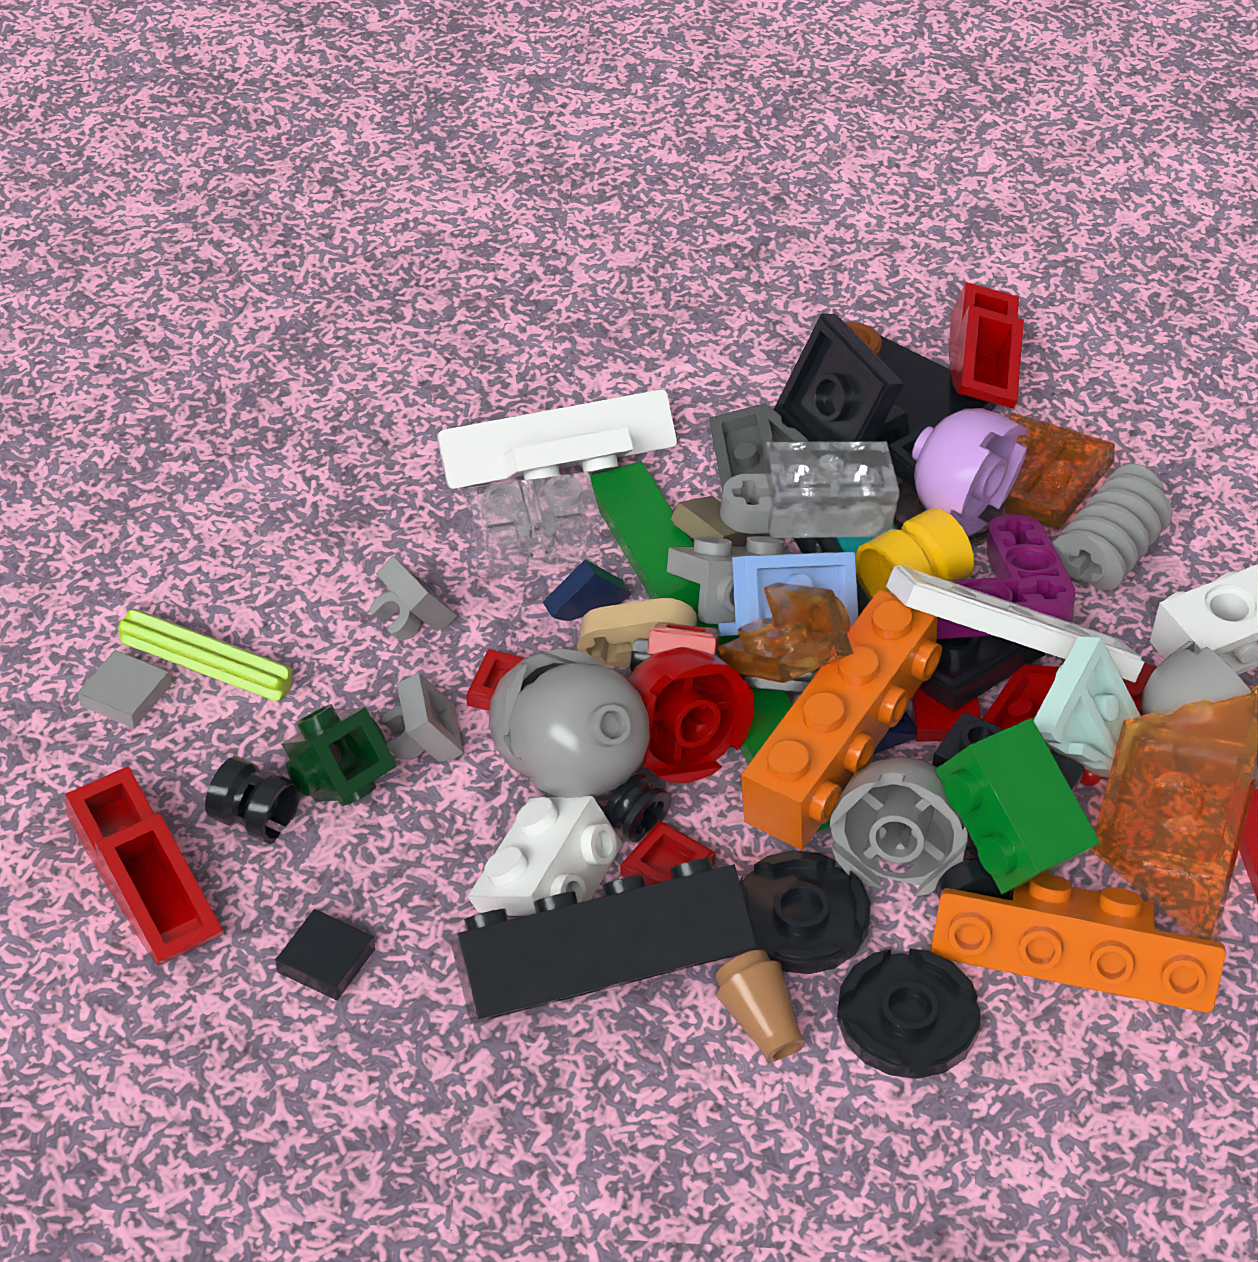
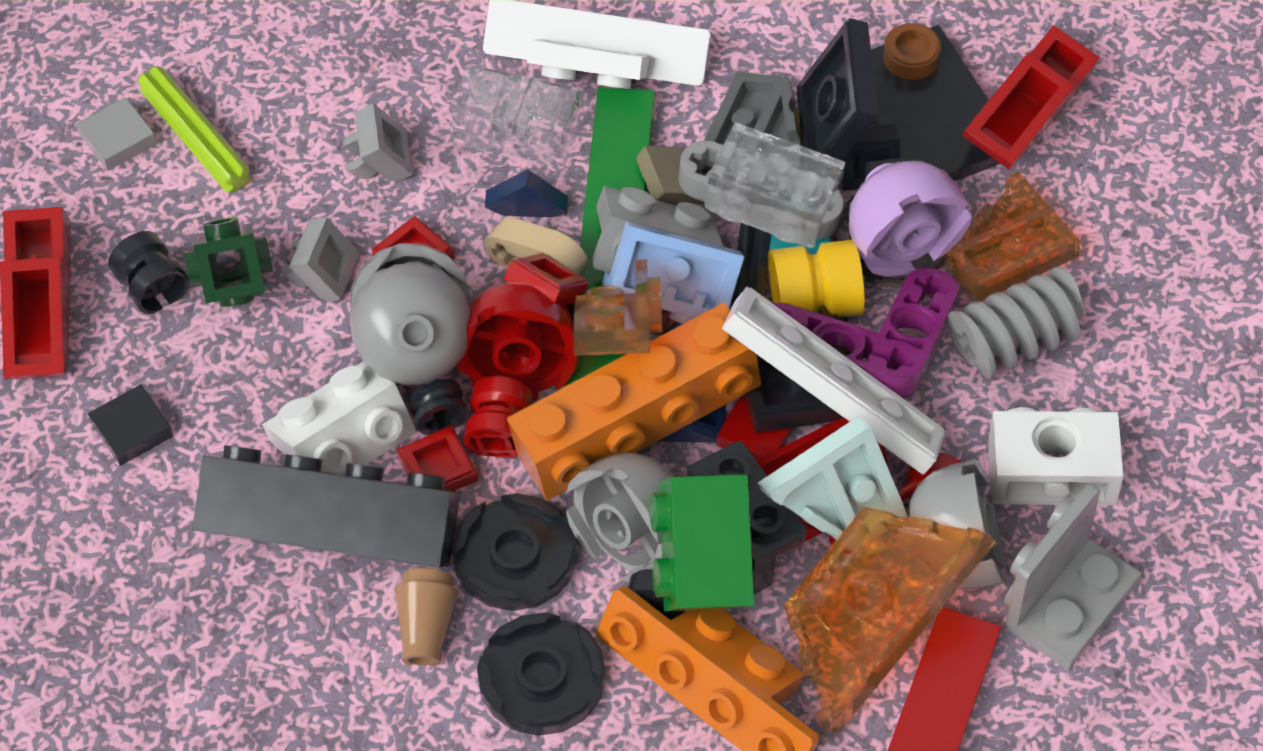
camera: 30 degrees right, 10 degrees up
(702, 789) = (492, 402): none -> red wheel

